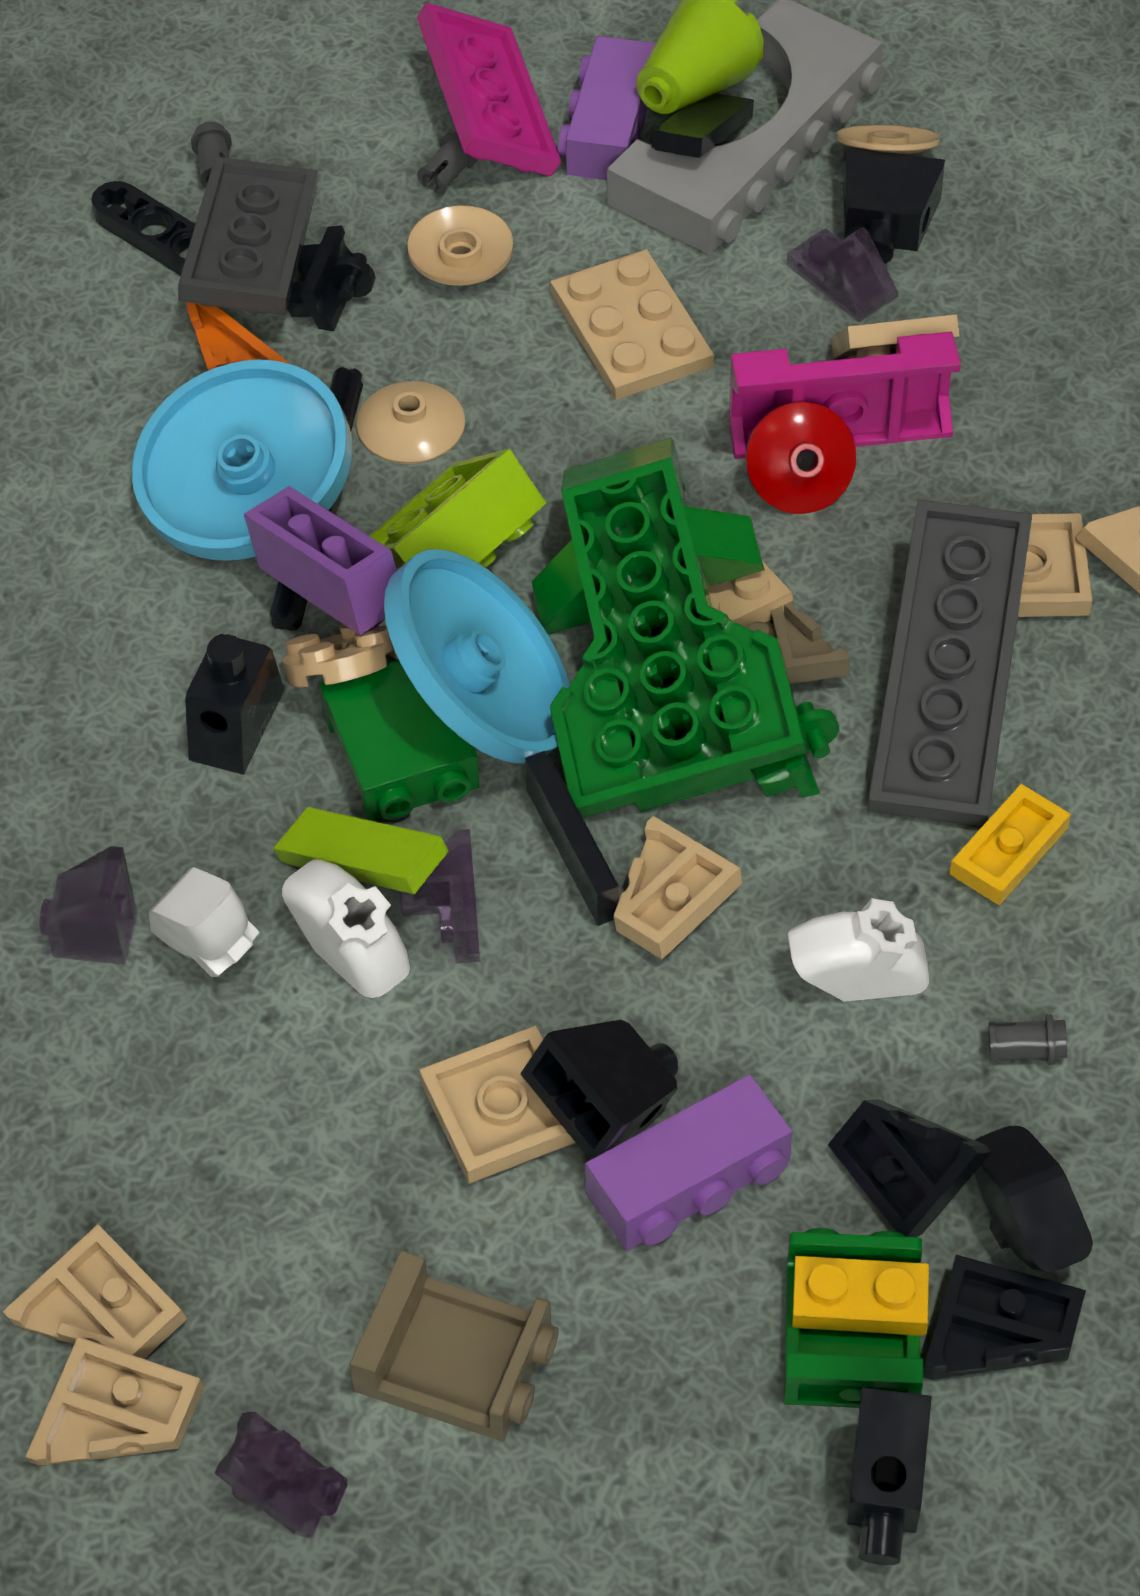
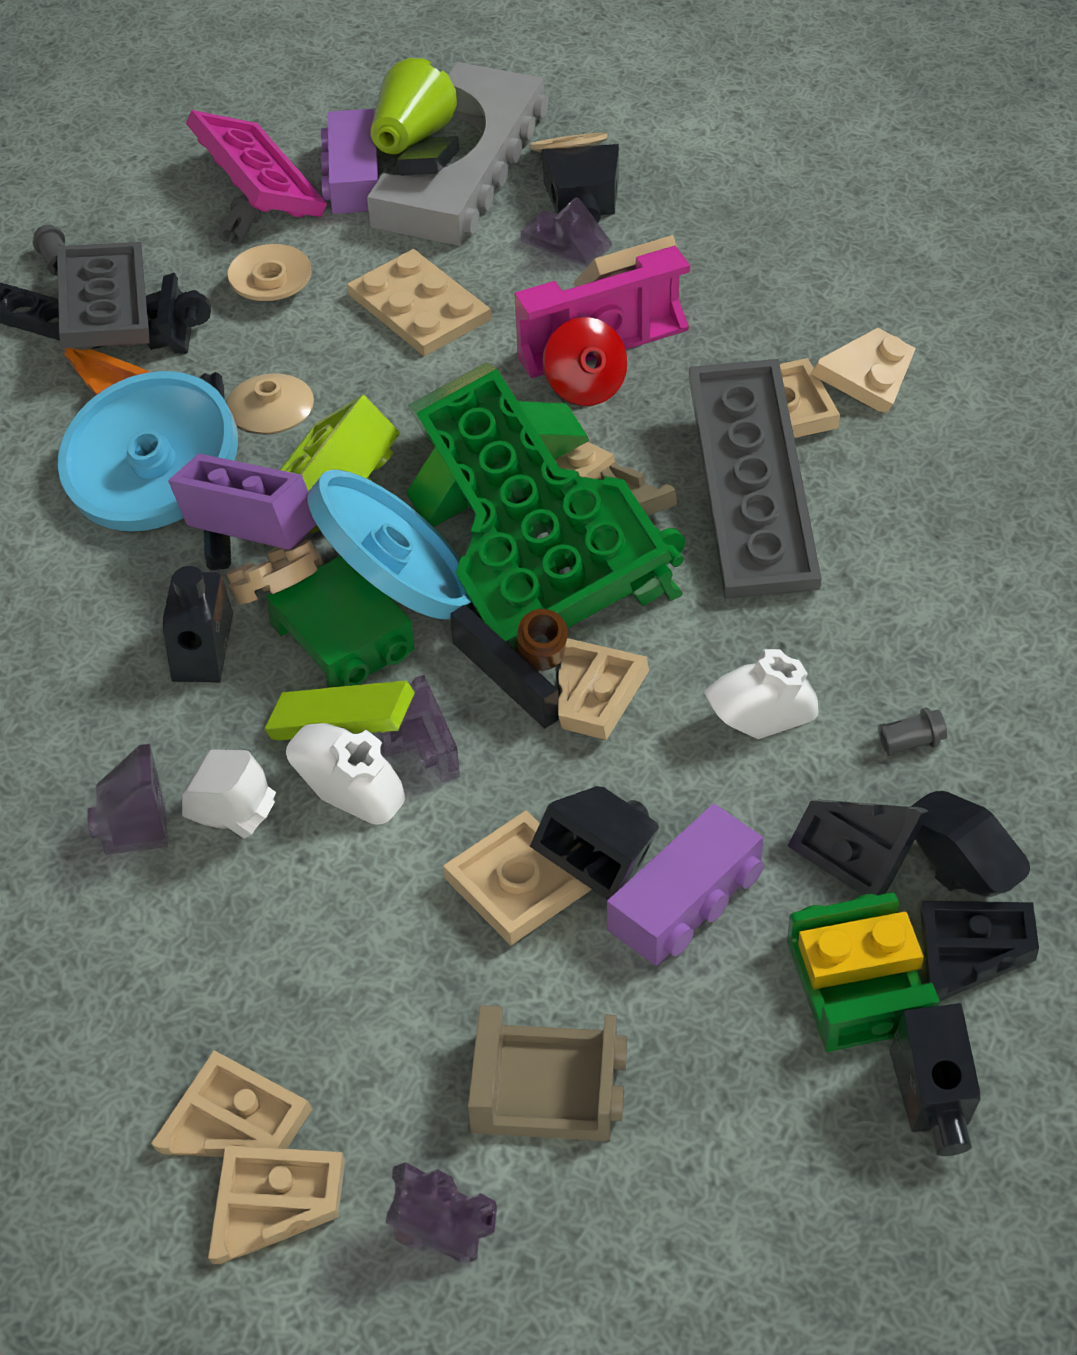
camera: 15 degrees left, 5 degrees down
(614, 801) = (546, 627): none -> reddish brown brick
(1010, 844) = (844, 596): yellow plate -> none

